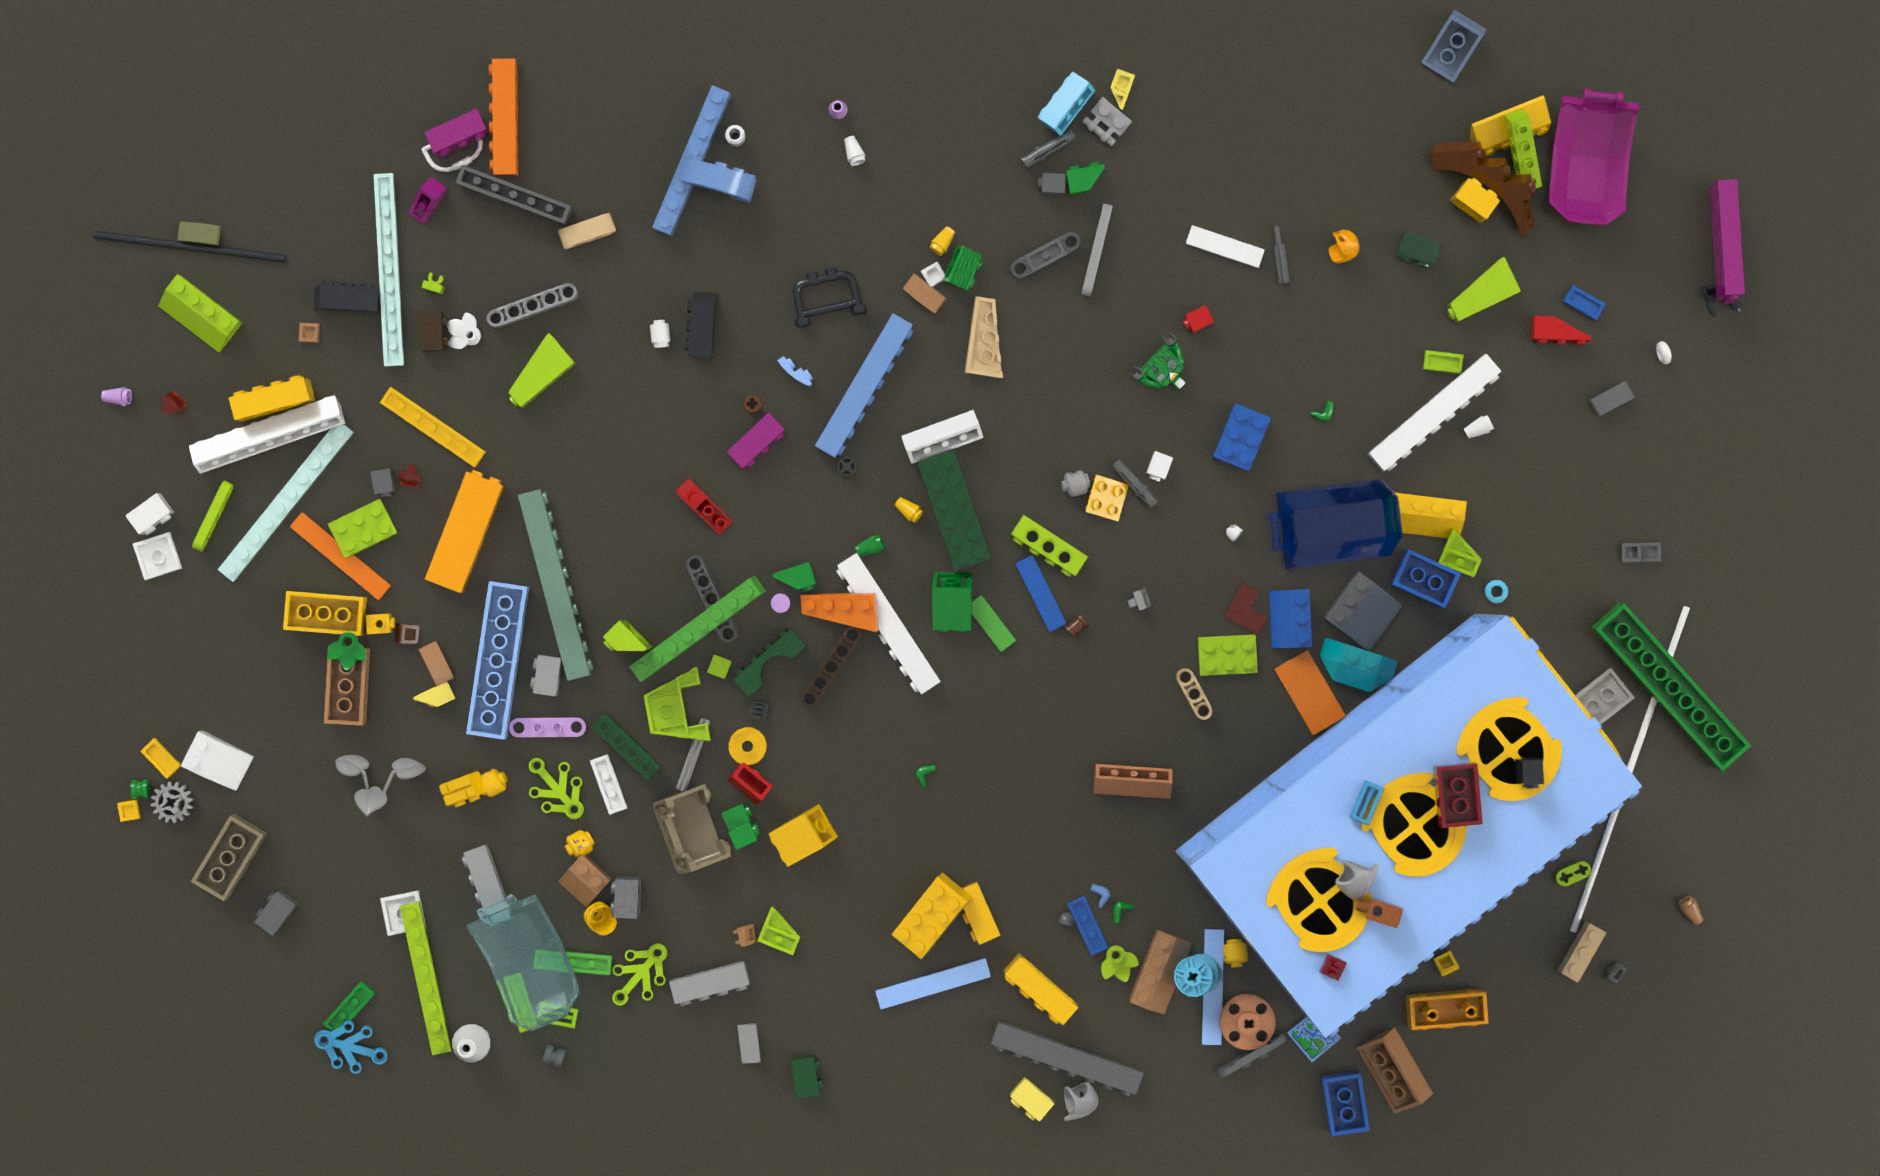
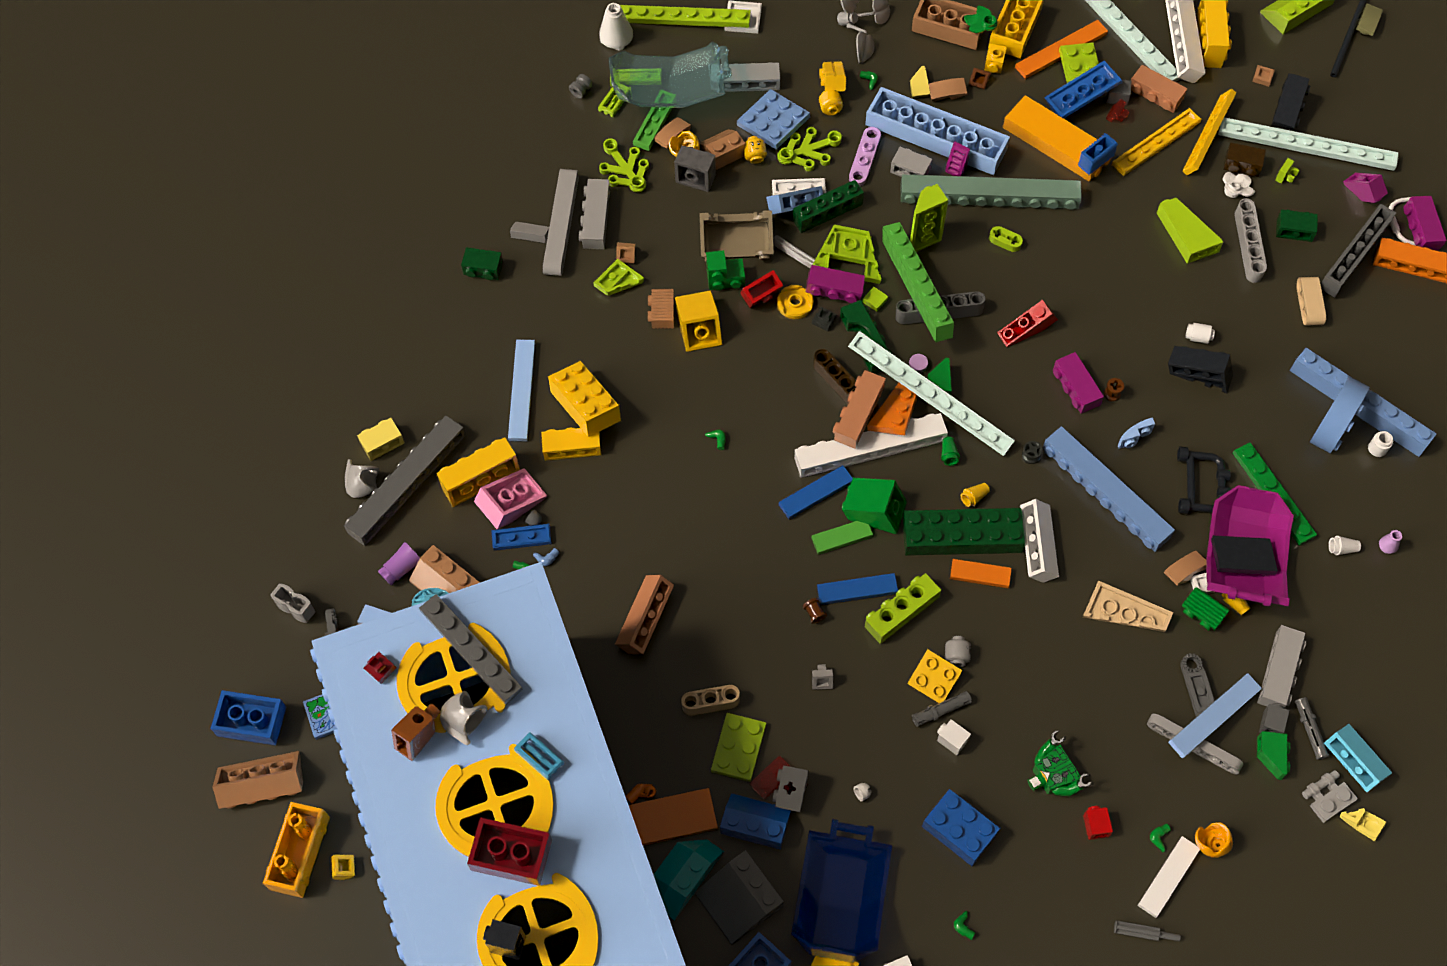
camera: 110 degrees right, 25 degrees down
(366, 441) = (1157, 88): none -> nougat brick
(399, 519) = (1083, 90): none -> blue slope
(406, 375) = (1209, 132): none -> yellow tile
(441, 748) = (873, 77): none -> green animal
(488, 484) = (1097, 154): none -> blue brick
(499, 262) = (1296, 225): none -> dark green brick
(531, 628) = (957, 162): none -> magenta slope
(531, 837) = (773, 119): none -> medium blue plate
(583, 938) = (673, 128): none -> medium nougat slope
(610, 555) = (1005, 239): none -> lime beam
(631, 783) = (787, 201): none -> medium blue slope
(720, 711) = (835, 284): none -> magenta brick
(729, 1015) = (560, 222): none -> light grey beam
(800, 876) = (661, 308): none -> medium nougat brick
(816, 226) = (1265, 480): none -> green plate
(820, 580) = (931, 393): none -> light aqua plate
(864, 643) = (859, 410): none -> nougat brick
(895, 239) = (1254, 515): none -> magenta windscreen
(900, 243) = (1244, 555): none -> black tile
(953, 661) = (815, 492): none -> blue tile
(988, 483) = (980, 573): none -> orange tile
(999, 186) = (1281, 667): none -> light grey brick
(1053, 950) = (509, 498): none -> bright pink slope
(1067, 237) = (1214, 715): none -> light blue tile
(1118, 966) = (472, 551): lime plate -> none
(1154, 1027) = (399, 564): none -> medium lavender plant
(1184, 220) = (1214, 835): none -> light orange helmet
(1189, 265) = (1157, 833): none -> green animal
(1227, 1105) = (292, 603): none -> light grey brick
(1266, 592) = (795, 799): none -> dark grey brick
(1292, 896) = (470, 649): none -> dark grey plate
(1295, 729) = (640, 790): none -> orange arm

